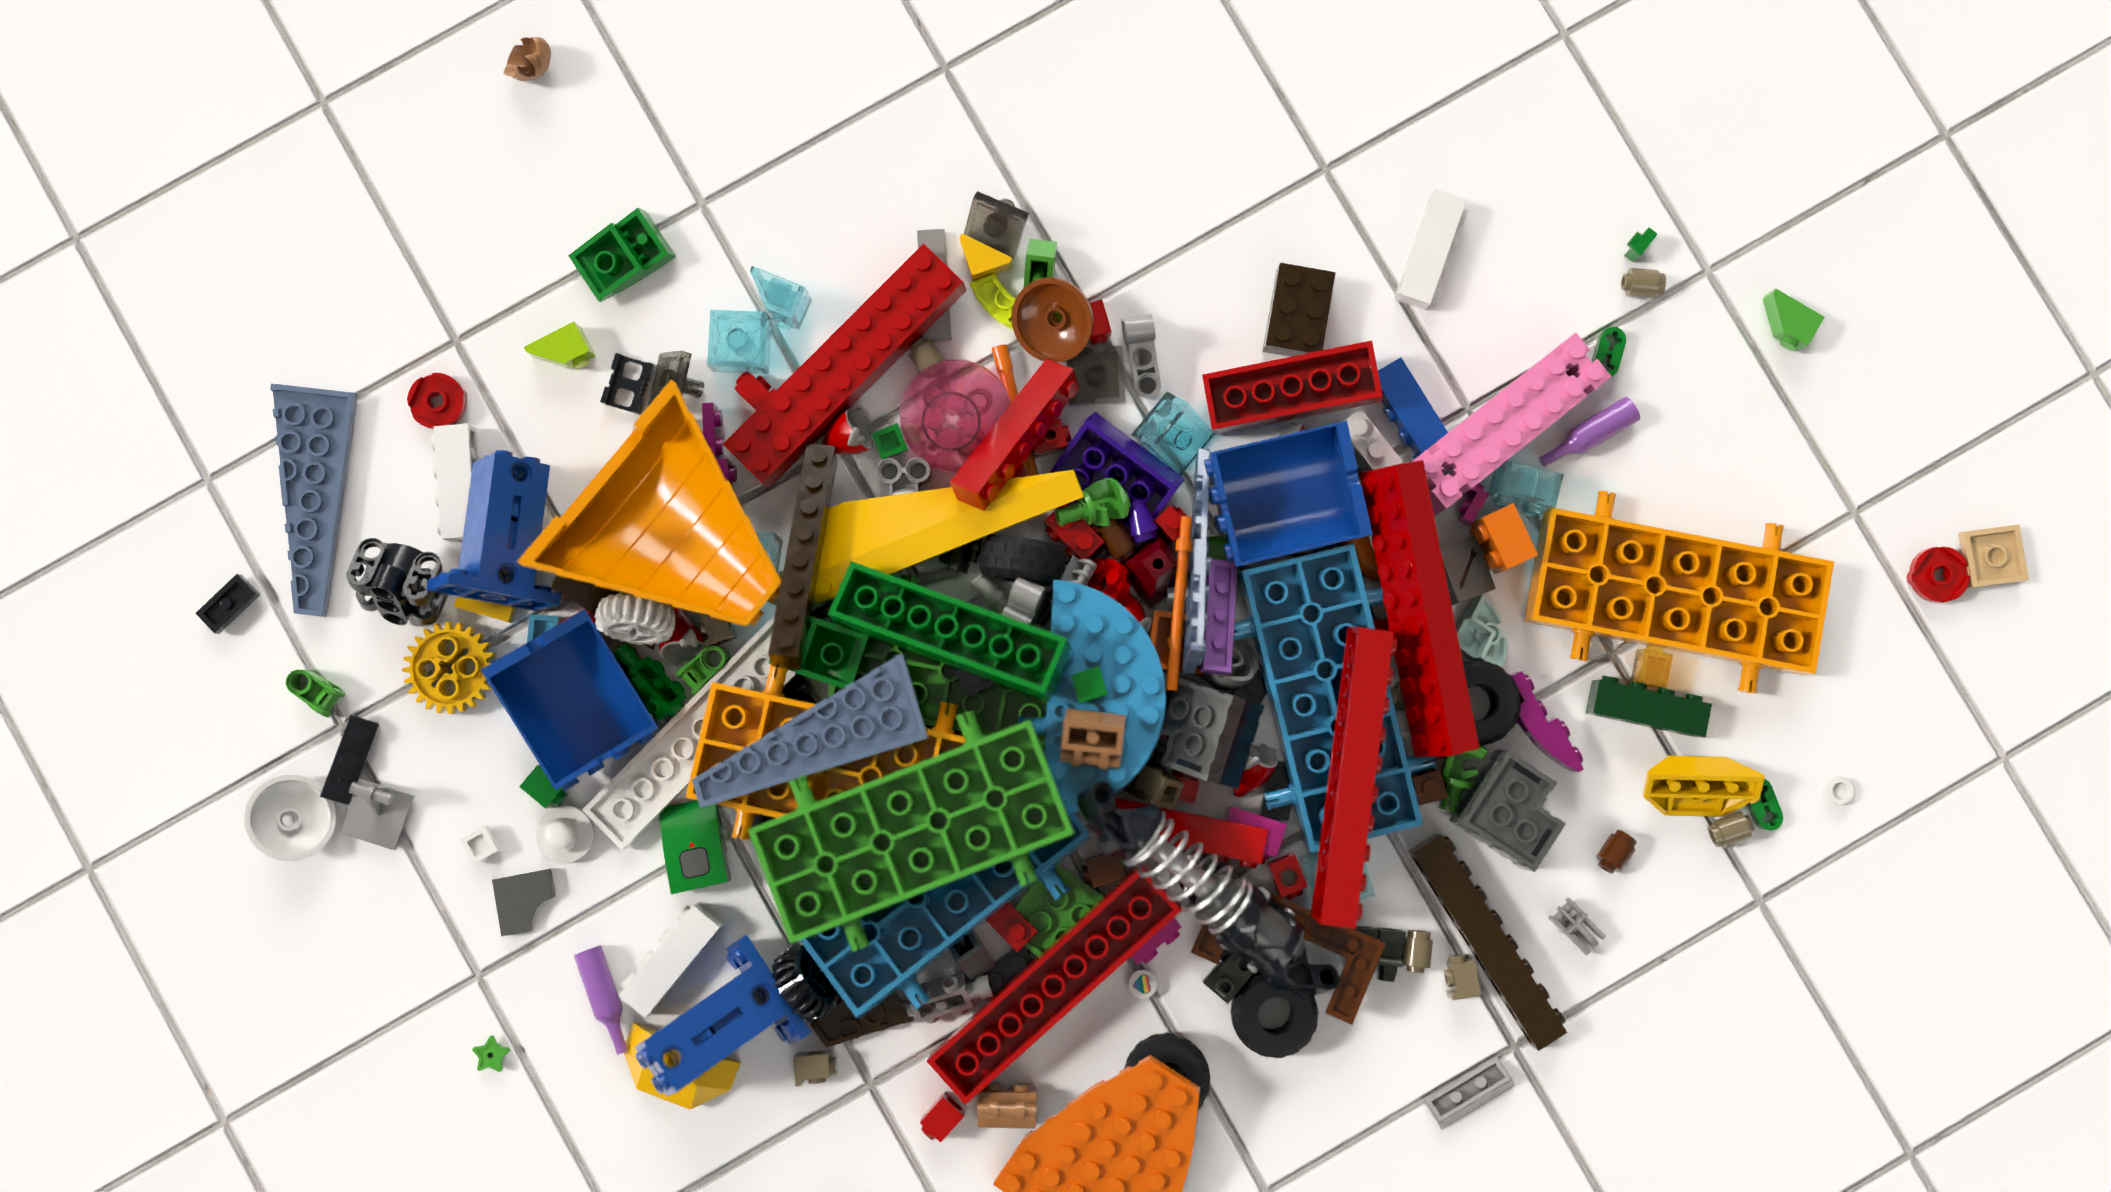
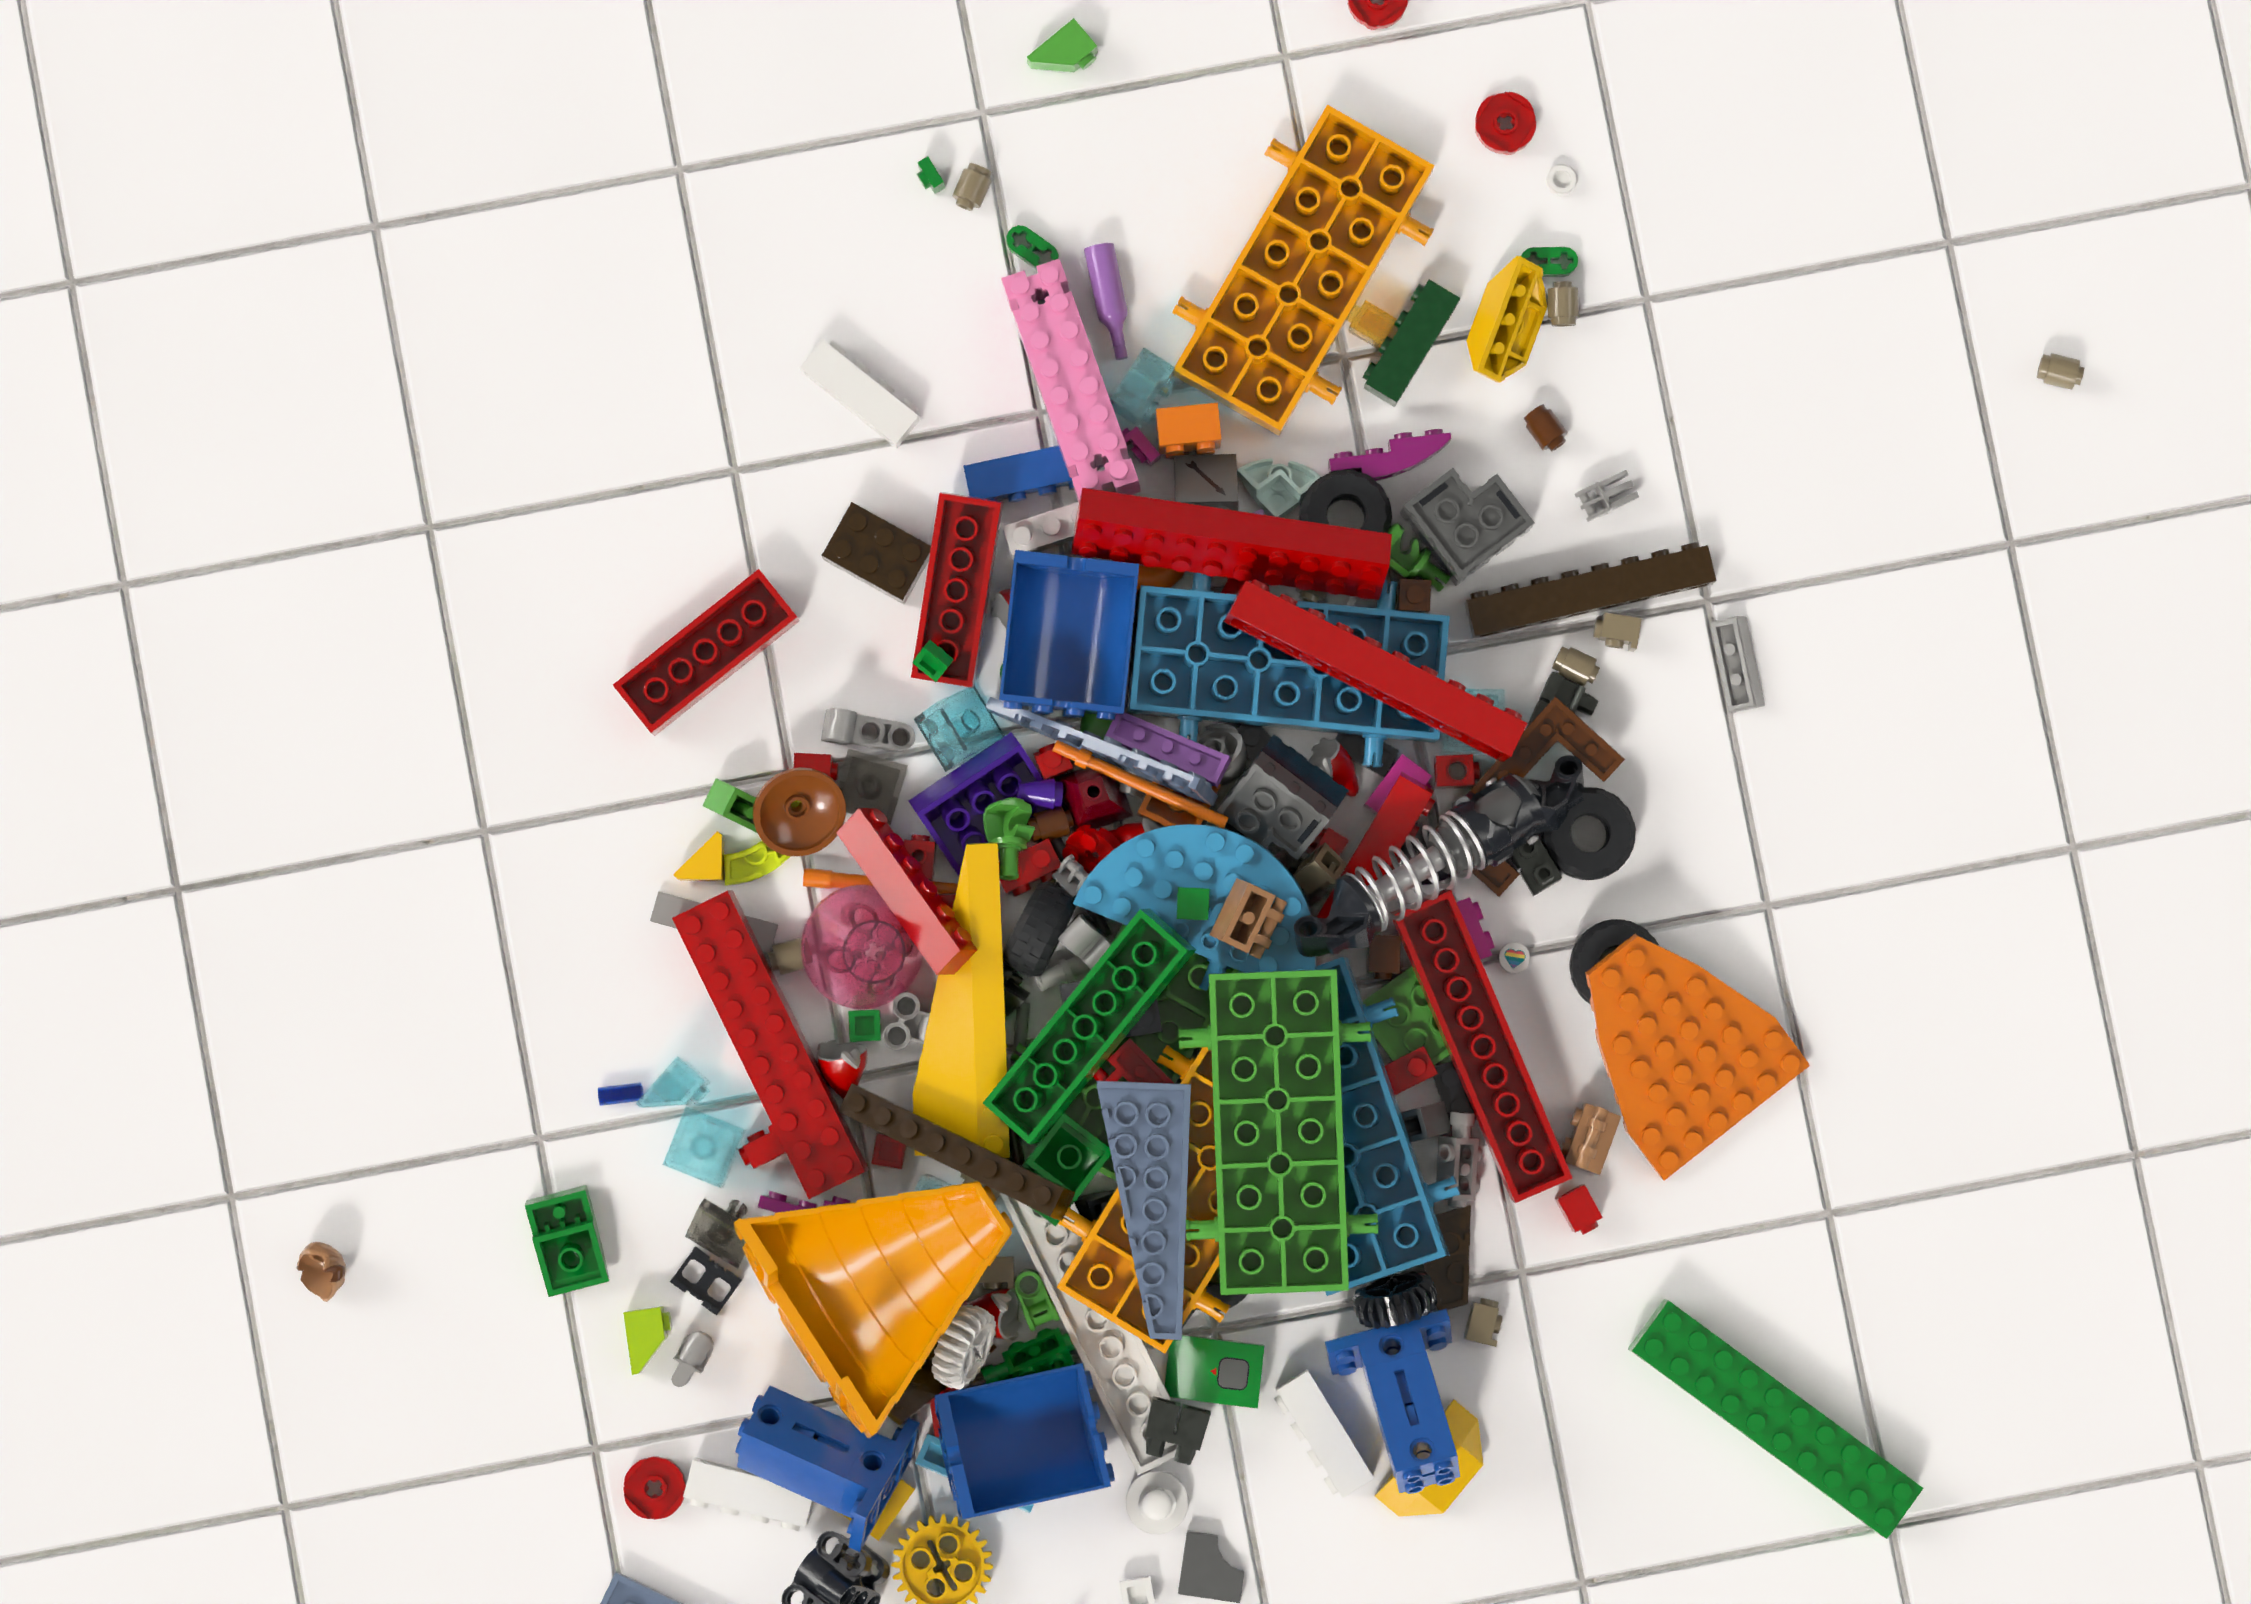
camera: 70 degrees left, 0 degrees up
(541, 790) = (1101, 1505): green brick -> none
(557, 394) = (692, 1357): none -> light grey arm
(602, 993) = (1333, 1517): medium lavender piece -> none
(625, 841) = (1189, 1432): none -> pearl dark grey hips
(761, 255) = (620, 1093): none -> clear blue axle
(786, 500) = (888, 1152): none -> red tile
(930, 684) = (1133, 1066): none -> red plate
(996, 223) = (675, 835): clear smoke tile -> none
(1161, 195) = (706, 652): none -> red brick
(1223, 386) = (932, 660): none -> green plate
(1857, 733) = (1507, 140): none -> red plate

